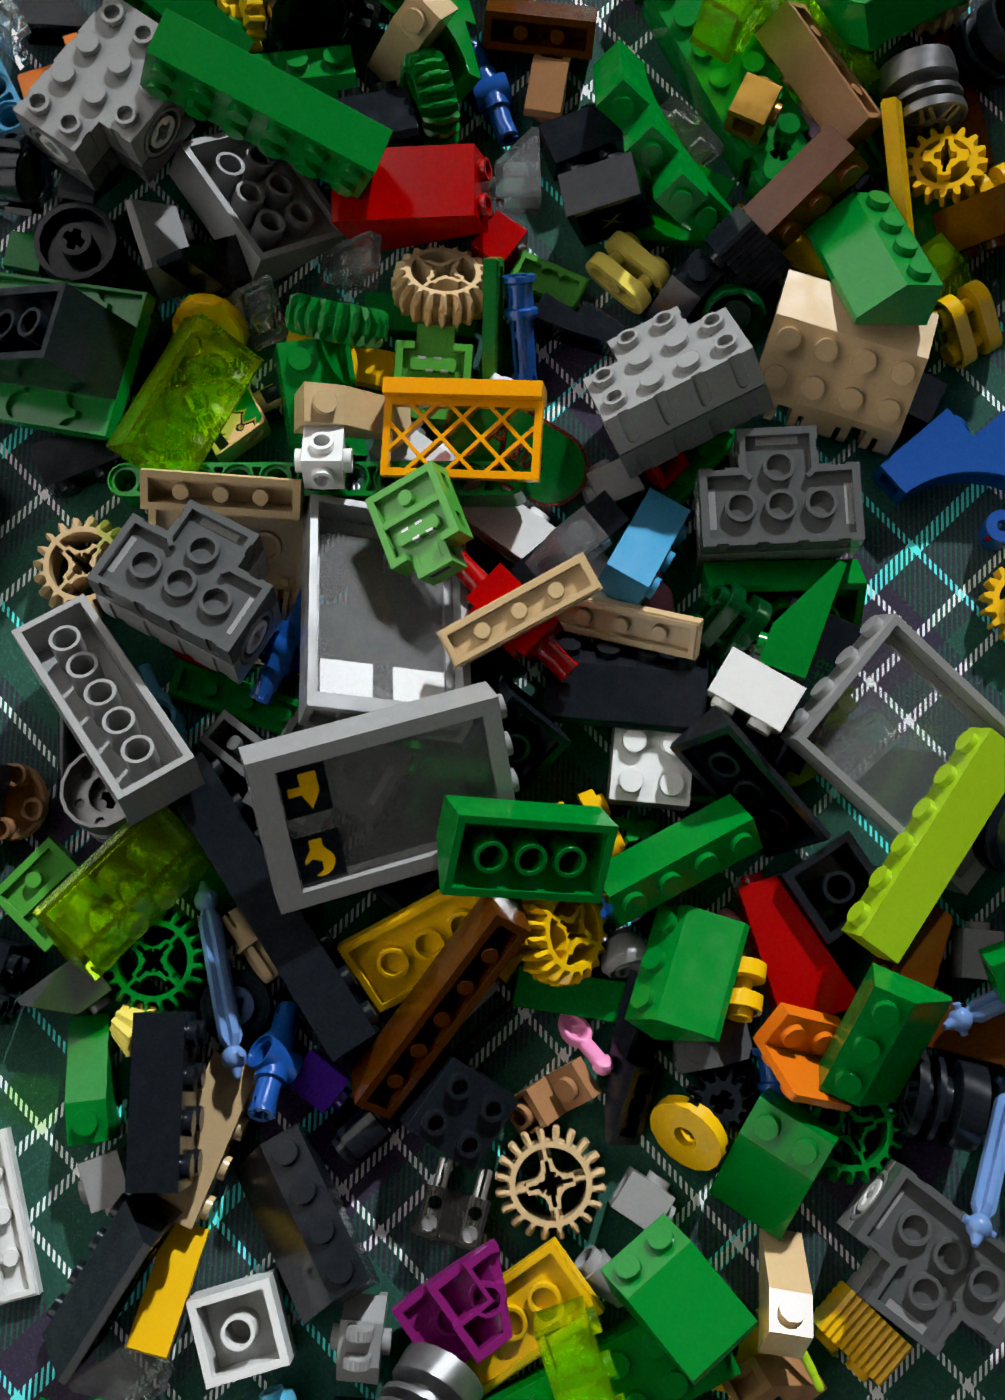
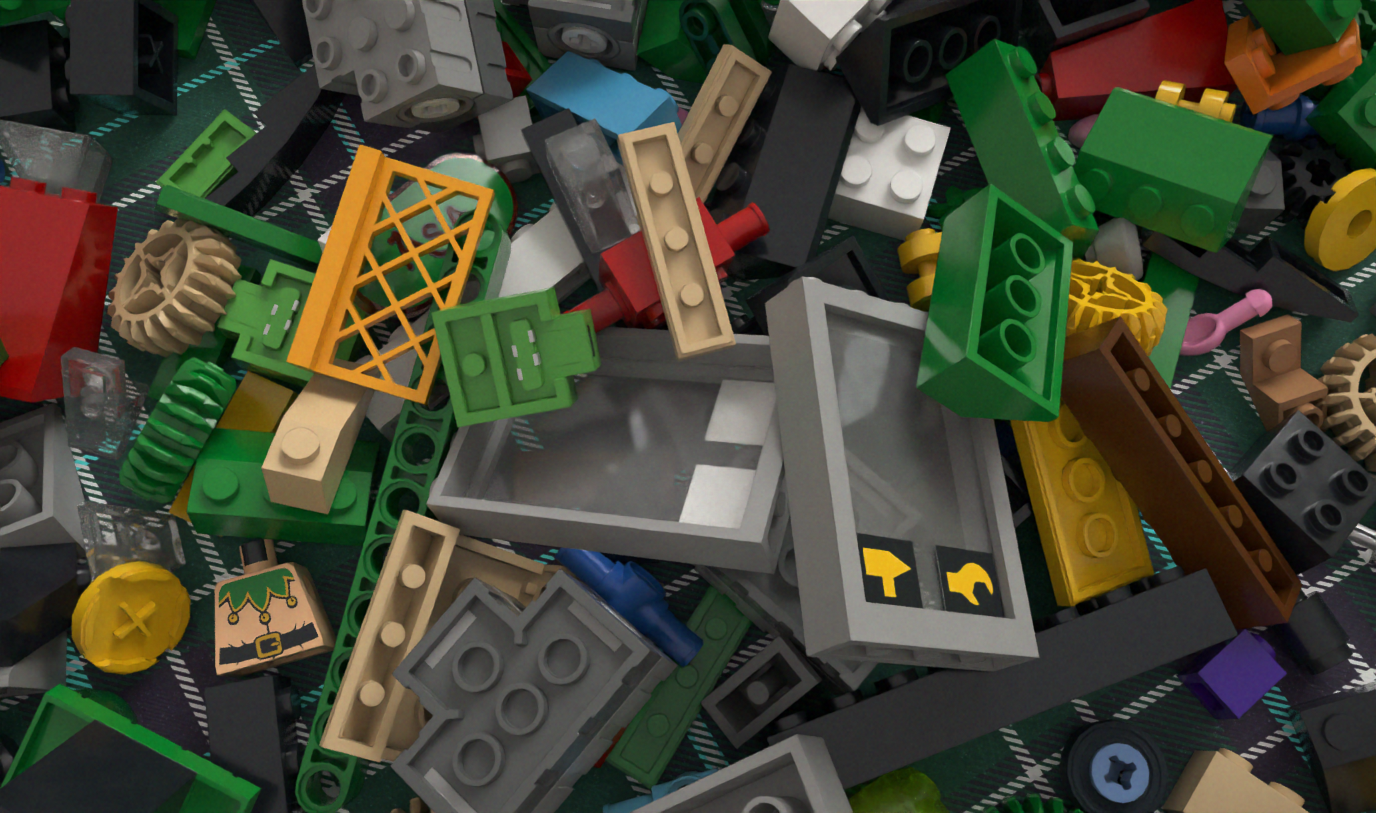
camera: 75 degrees left, 5 degrees down
(186, 398) = (226, 668): clear neon green slope -> none
(220, 980) = (1086, 783): medium blue wheel -> none
(250, 945) = (1031, 735): tan axle -> none
(274, 1061) = (1212, 726): blue pin -> none
(323, 457) = (391, 476): white brick -> none
(503, 239) = (135, 199): red brick -> none
(521, 314) = (247, 189): blue pin -> none
(628, 271) = (229, 62): light yellow brick -> none

